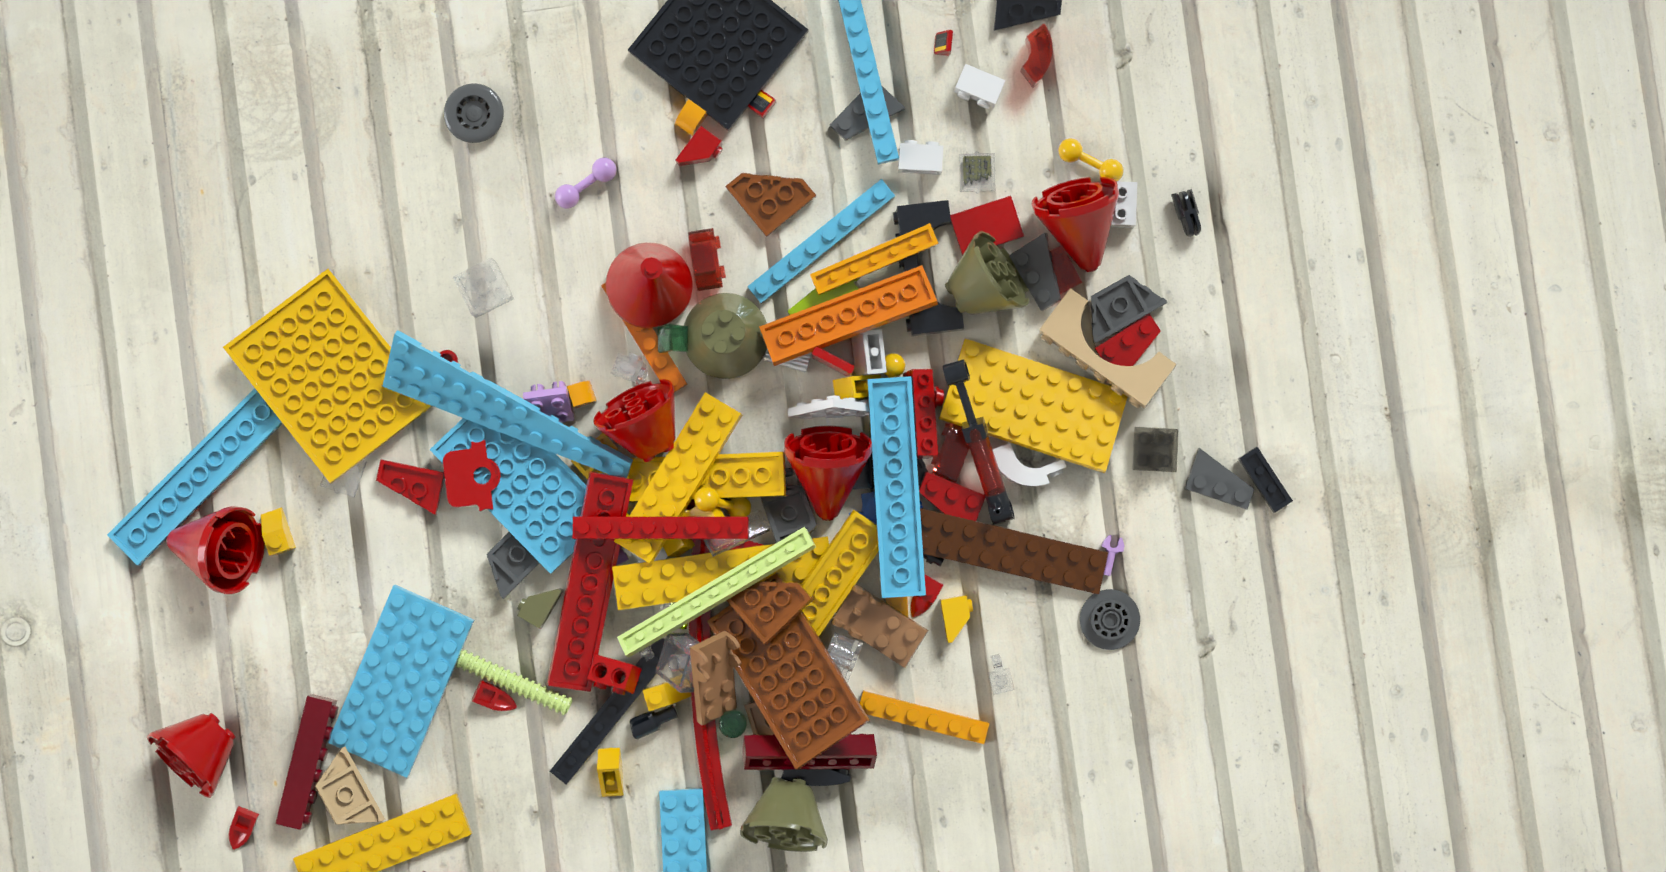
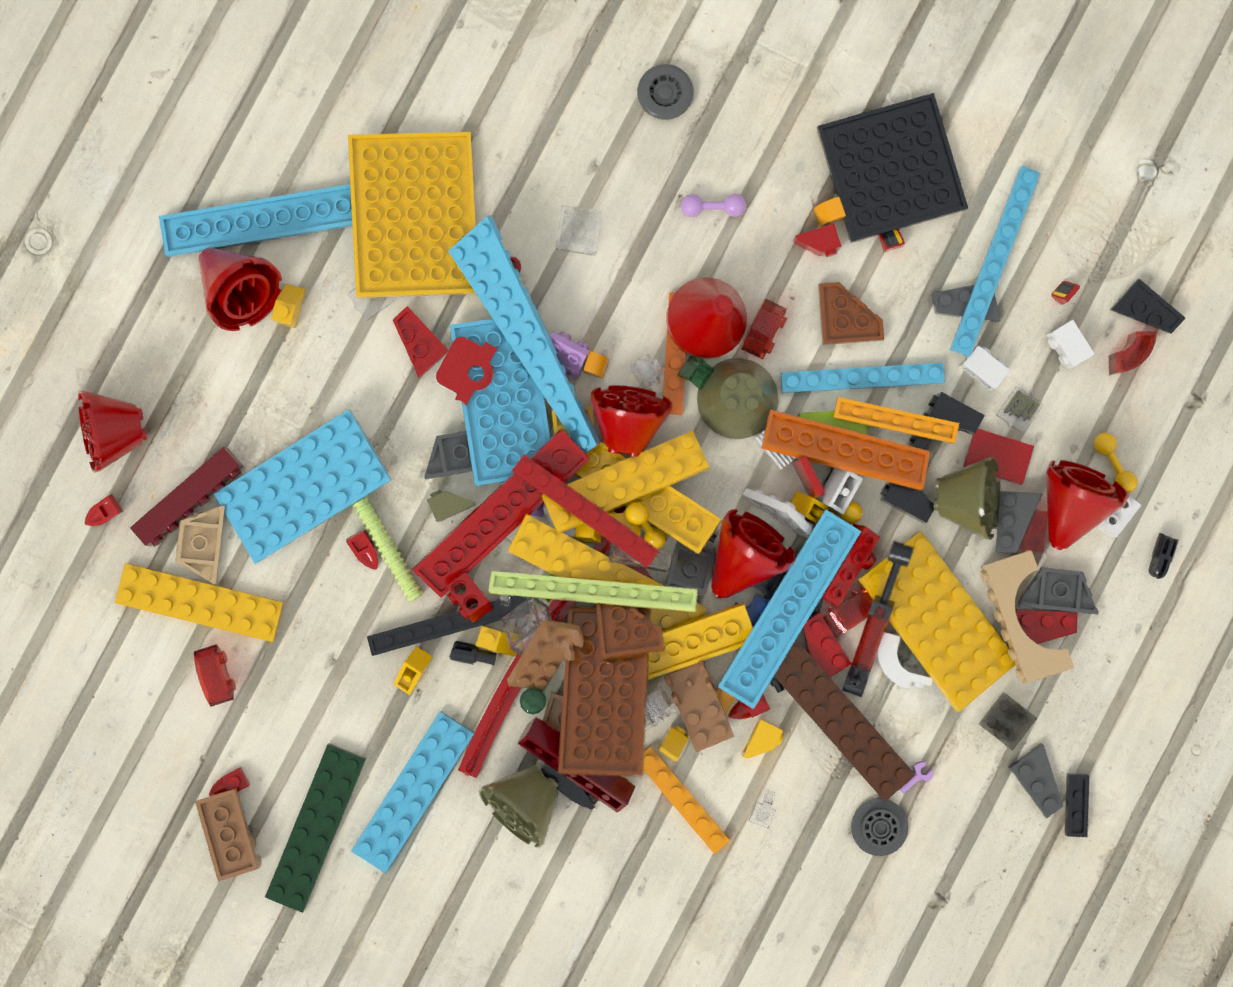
camera: 35 degrees right, 0 degrees up
(879, 672) = (673, 742): none -> yellow slope

